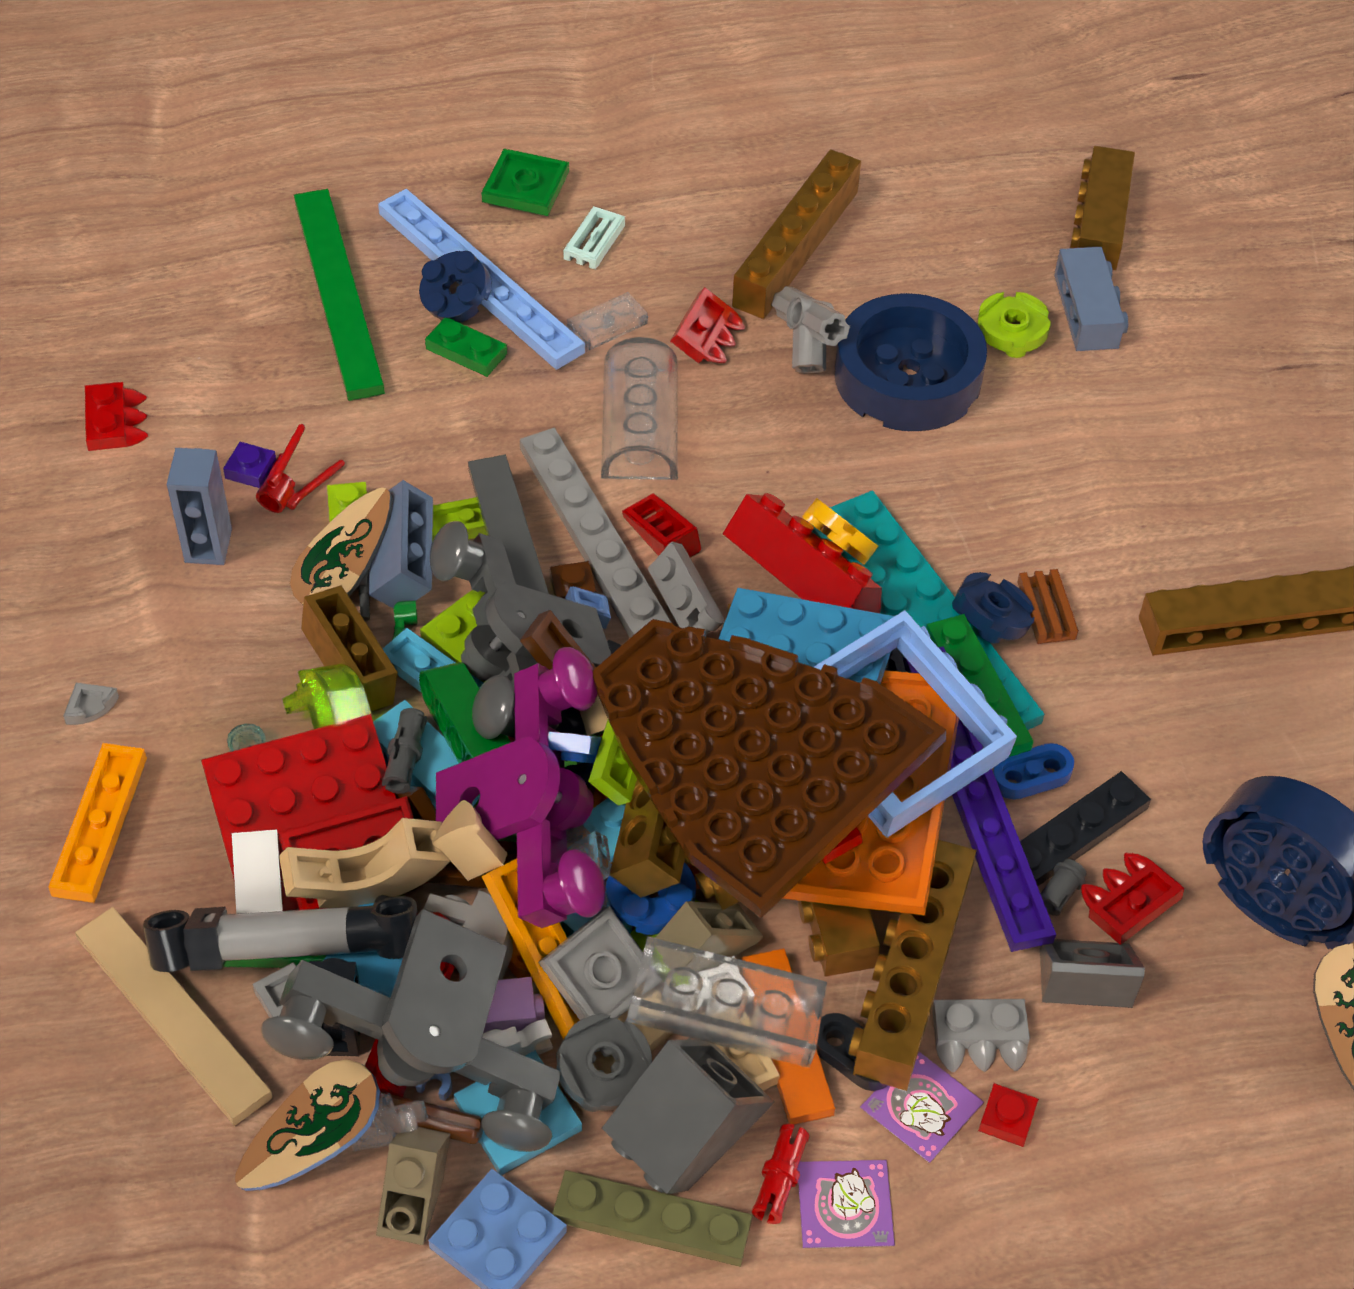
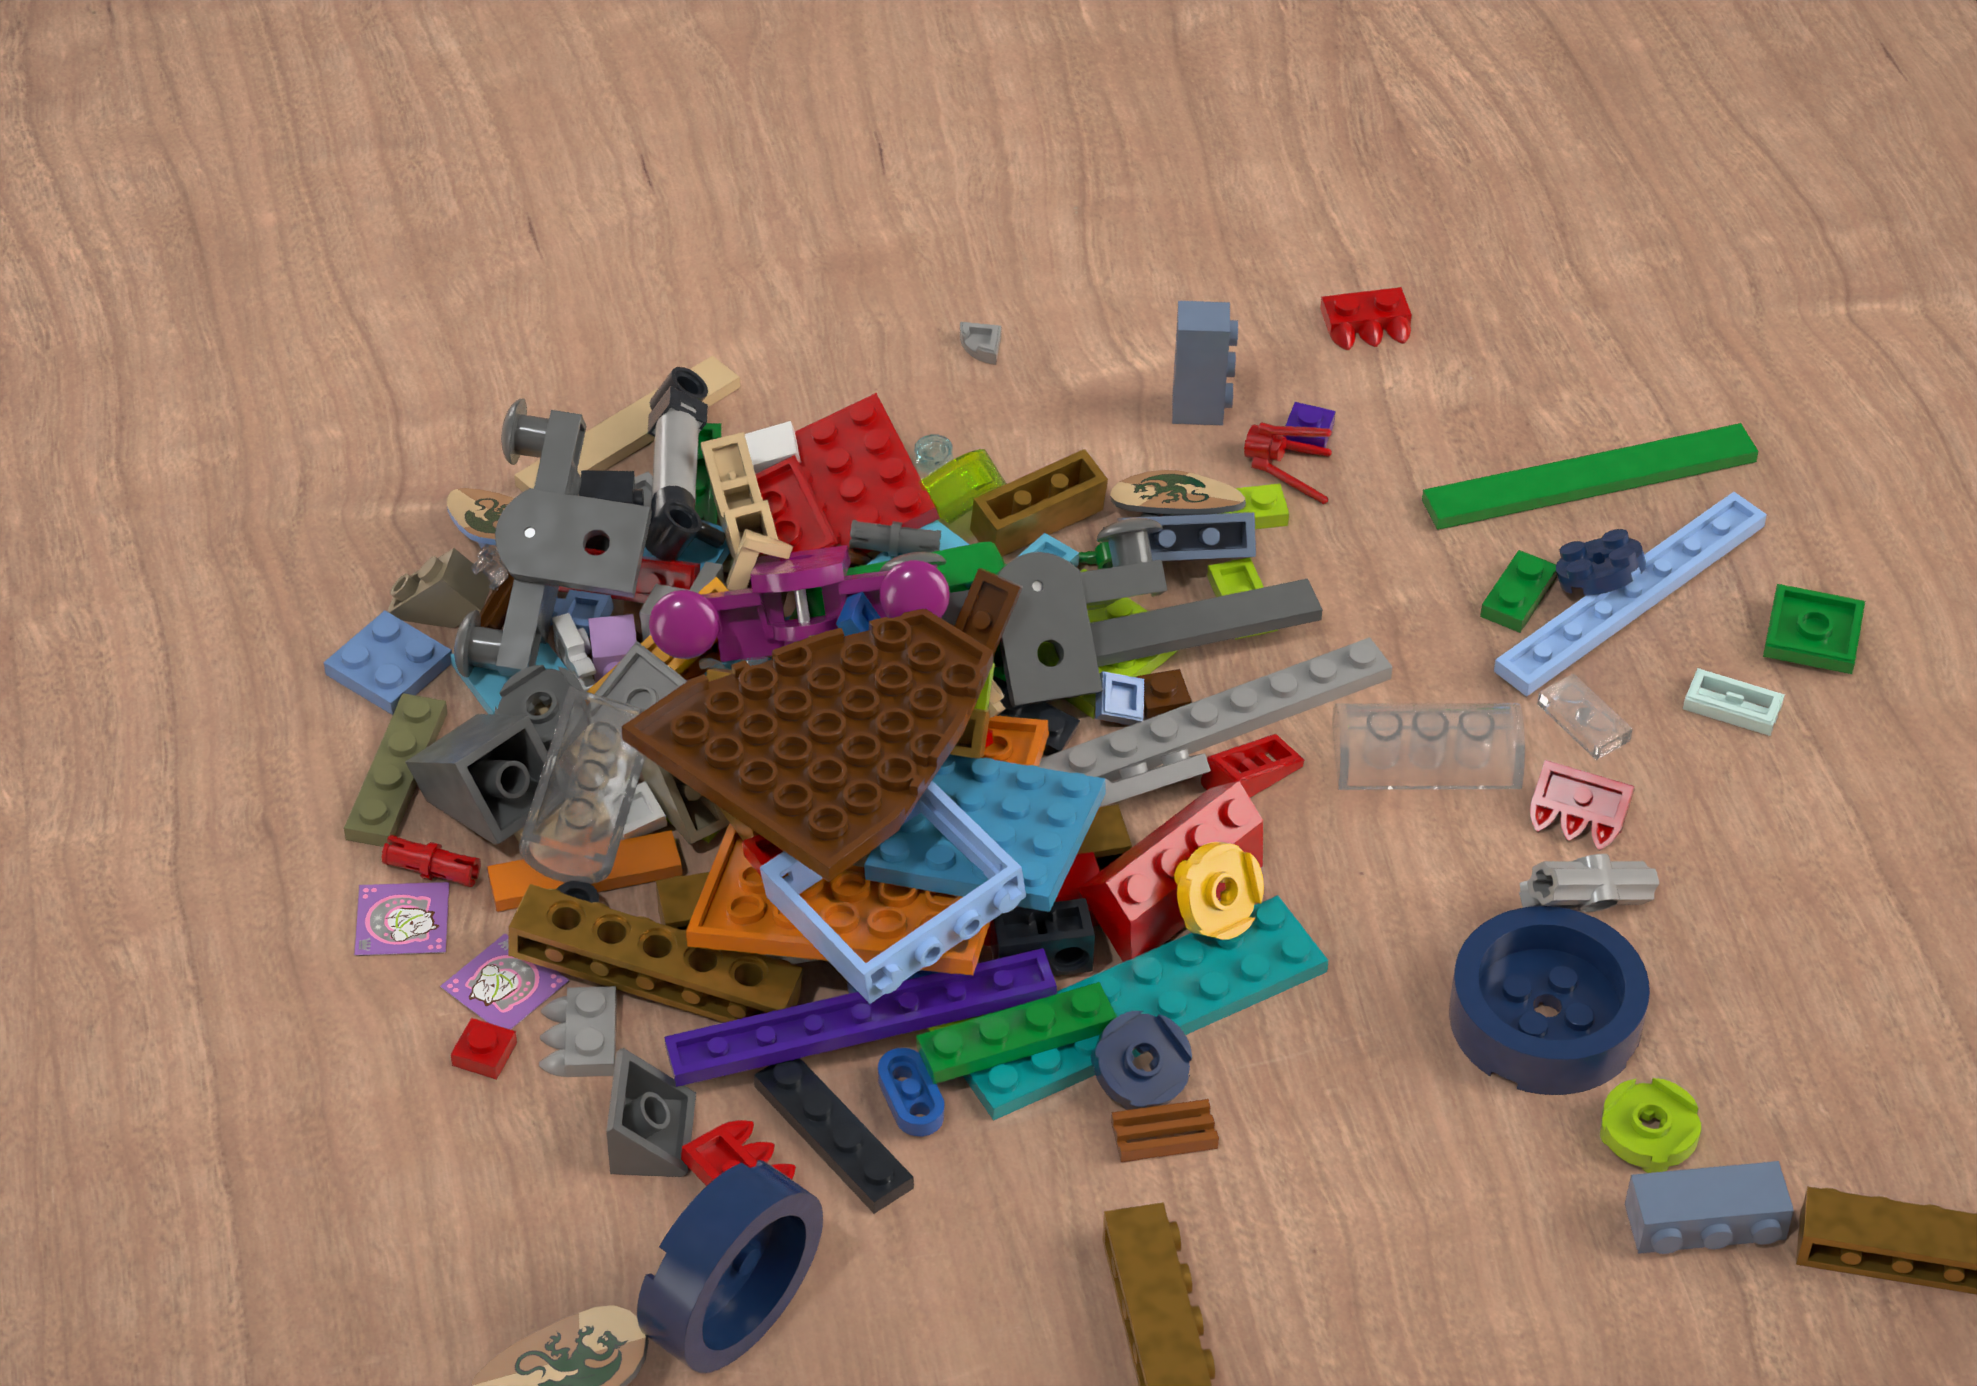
camera: 90 degrees right, 5 degrees down
(97, 823) = (835, 357): light orange plate -> none
(796, 233) = (1773, 891): pearl gold brick -> none
(1066, 880) = (766, 1113): dark grey pin -> none

